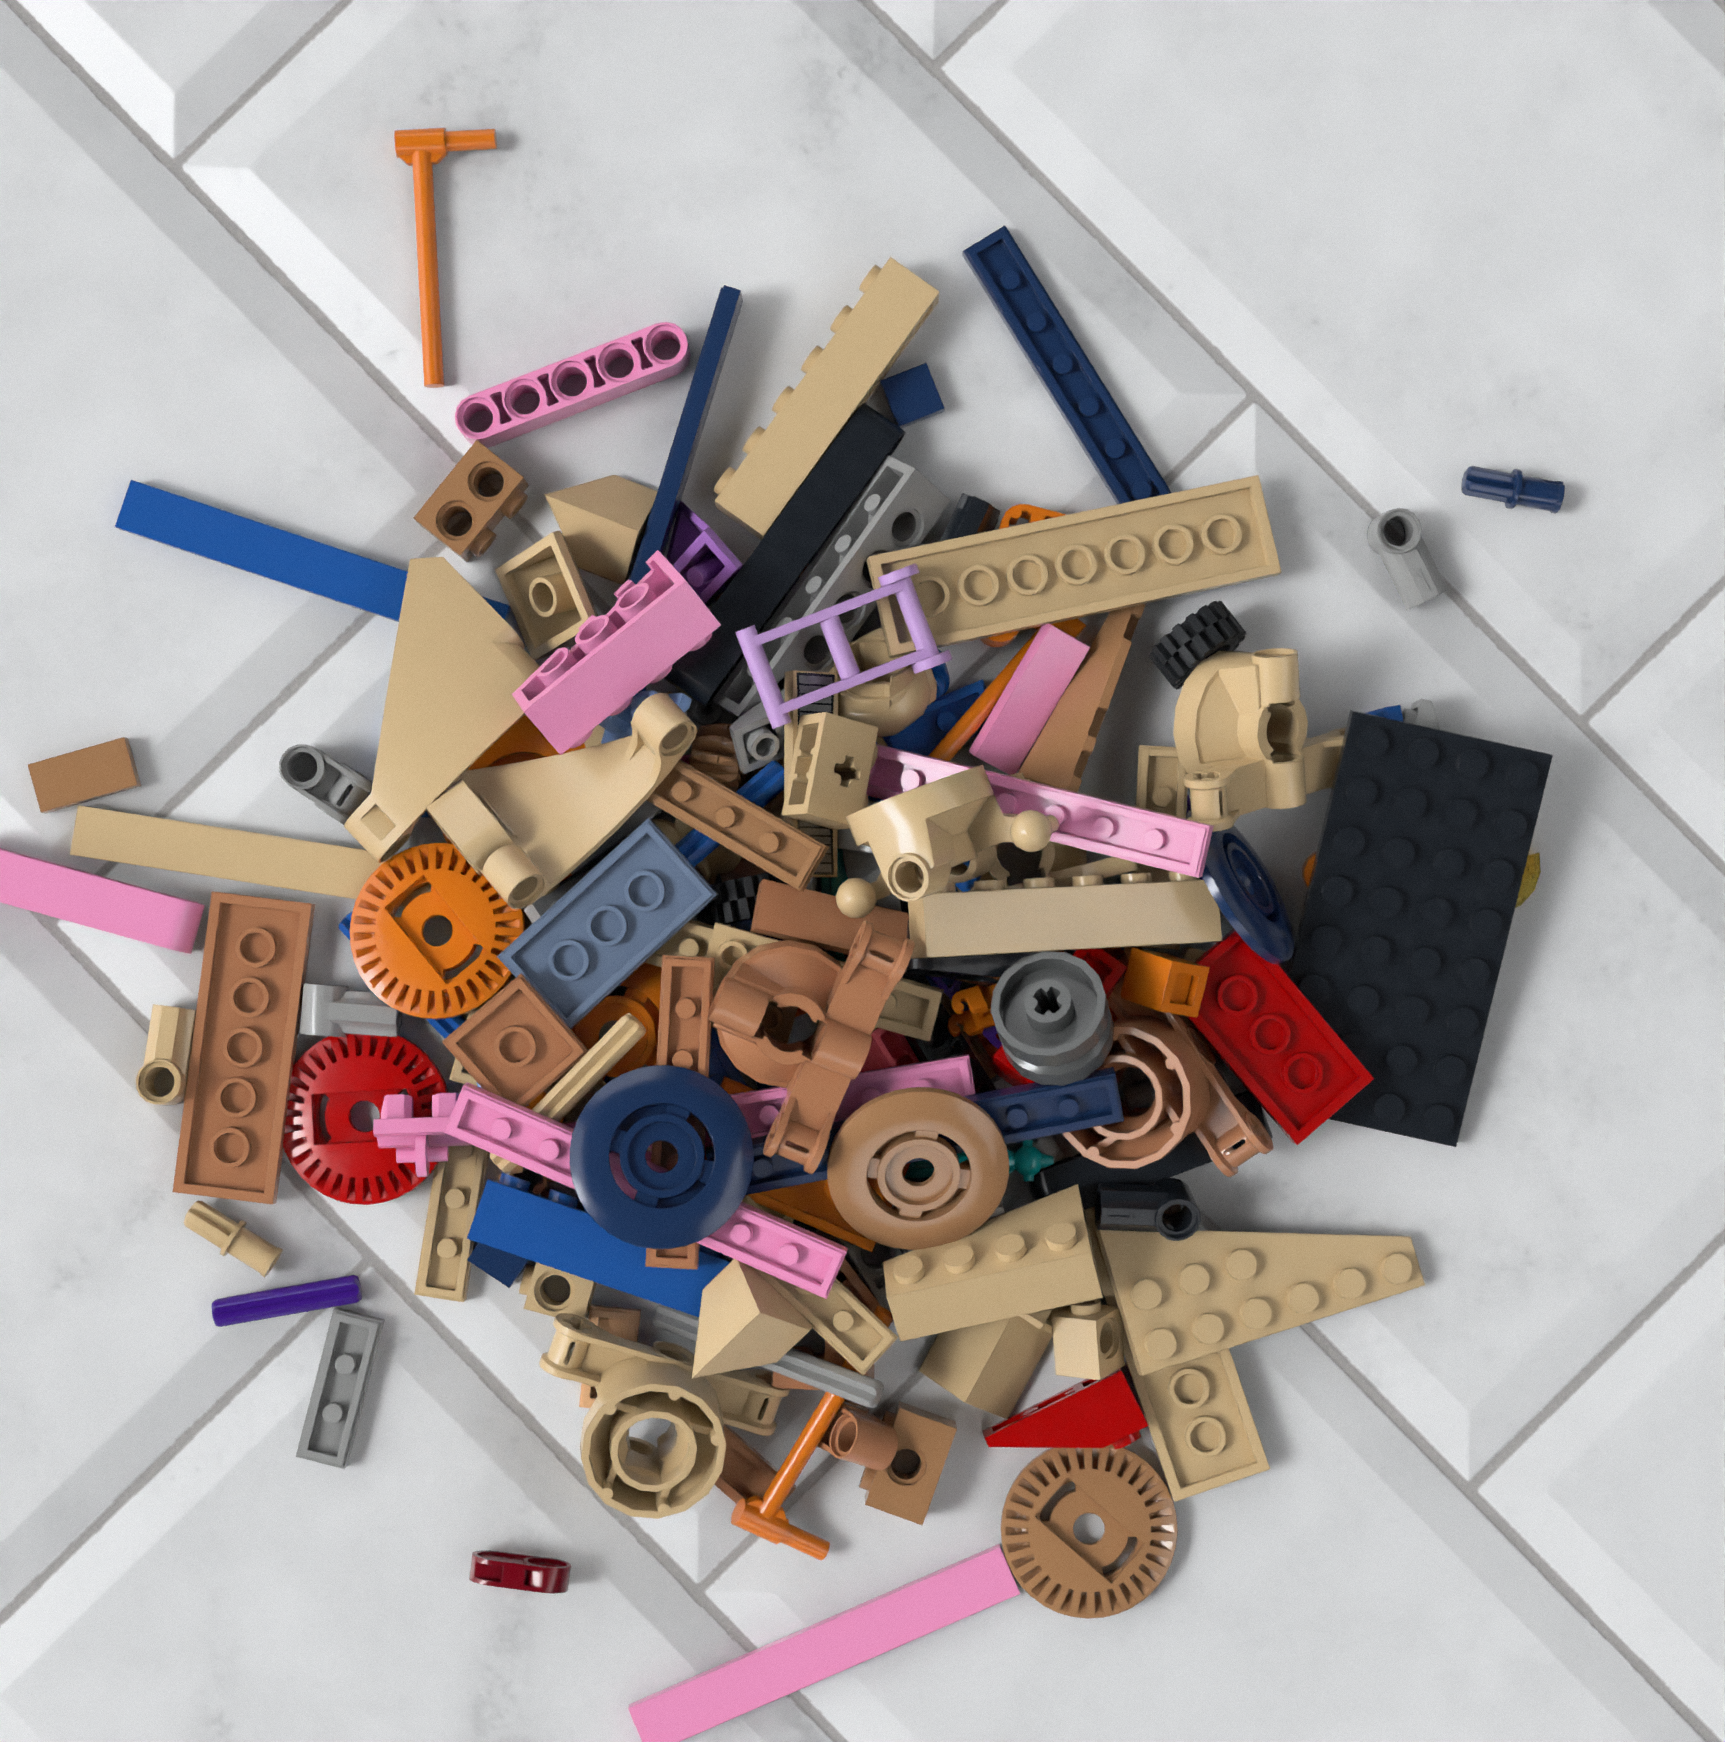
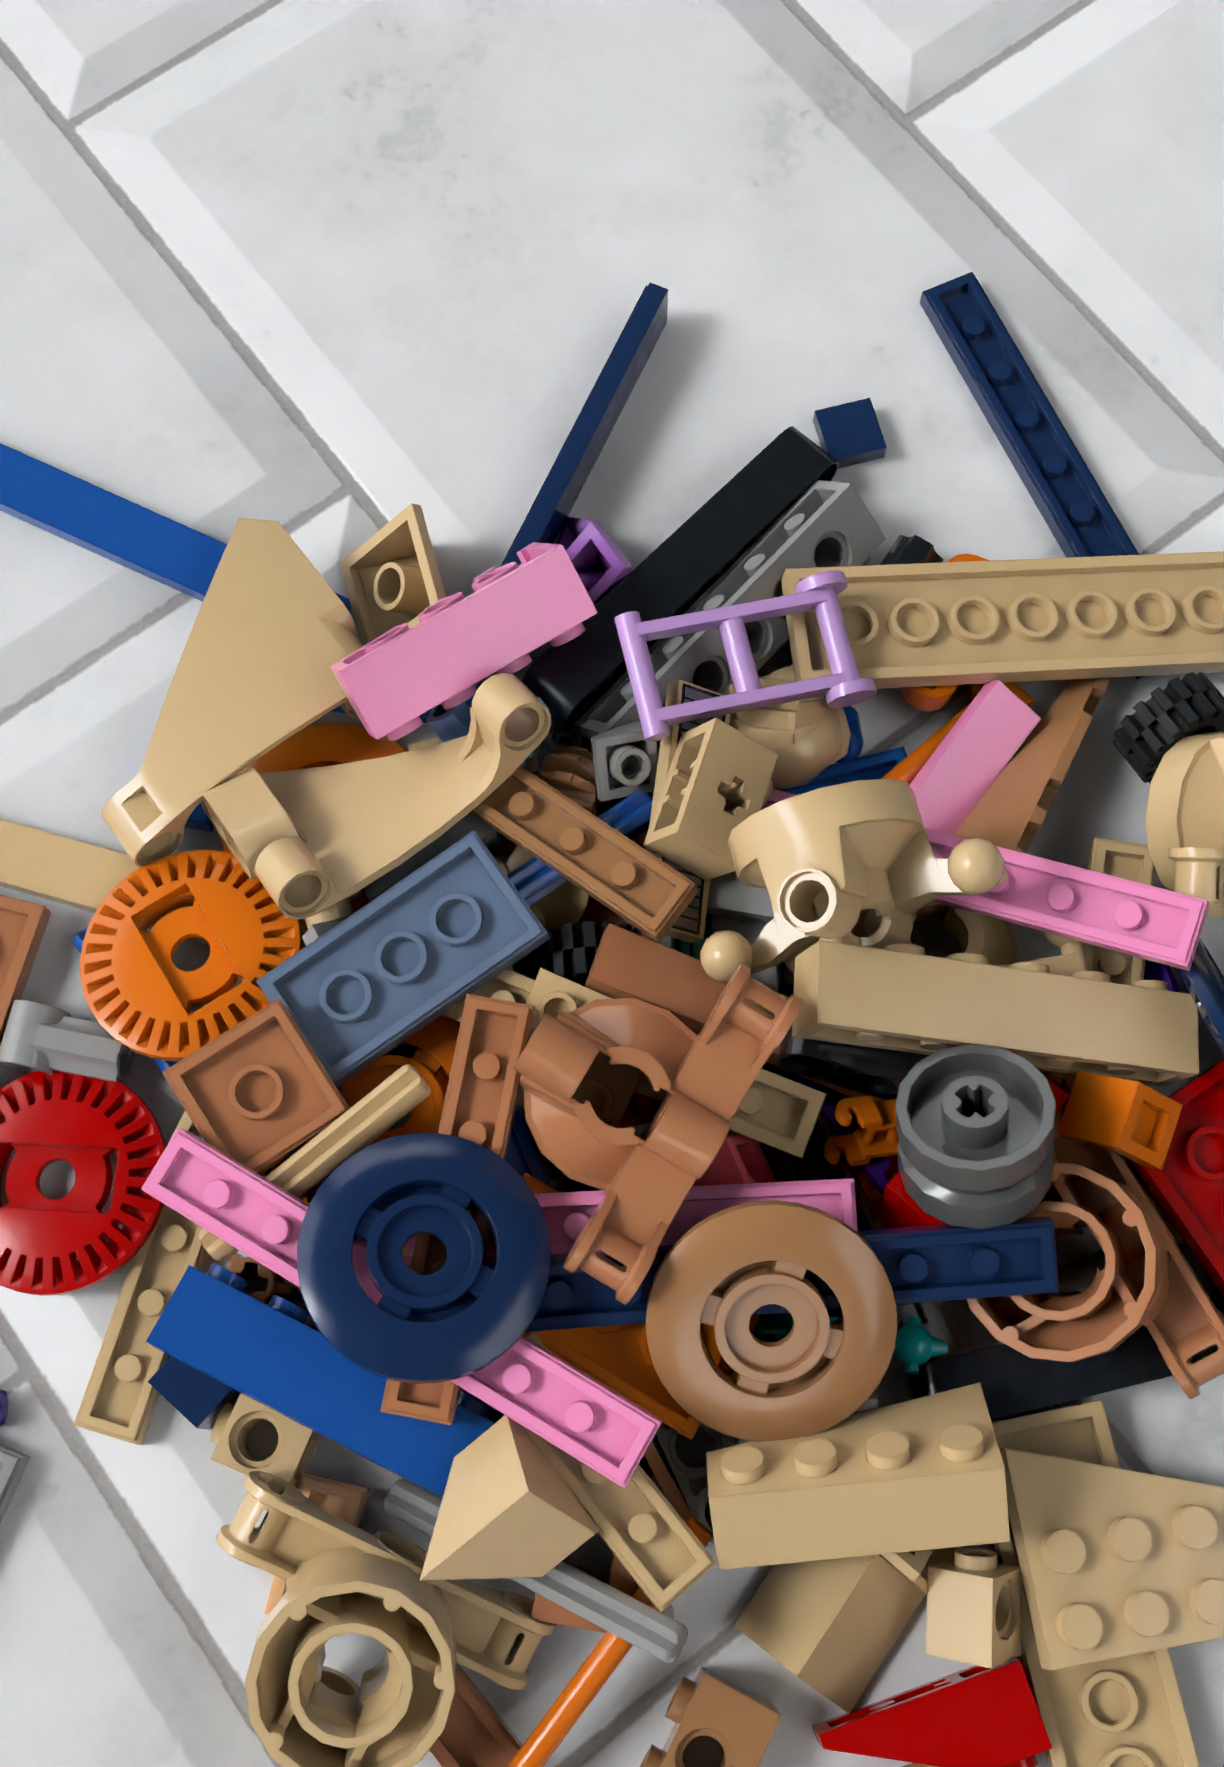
camera: 10 degrees right, 15 degrees down
(329, 784) = (95, 770): light grey piece -> none
(417, 1138) = (112, 1204): bright pink hips -> none
(422, 150) = (334, 134): orange bar -> none
(461, 494) = (314, 472): medium nougat brick -> none
(548, 381) = (435, 364): bright pink beam -> none
(604, 523) = (469, 521): tan slope -> none
(827, 397) = (793, 376): tan brick -> none
(860, 1437) = (644, 1710): nougat piece -> none
(1143, 1207) = (1067, 1429): black piece -> none

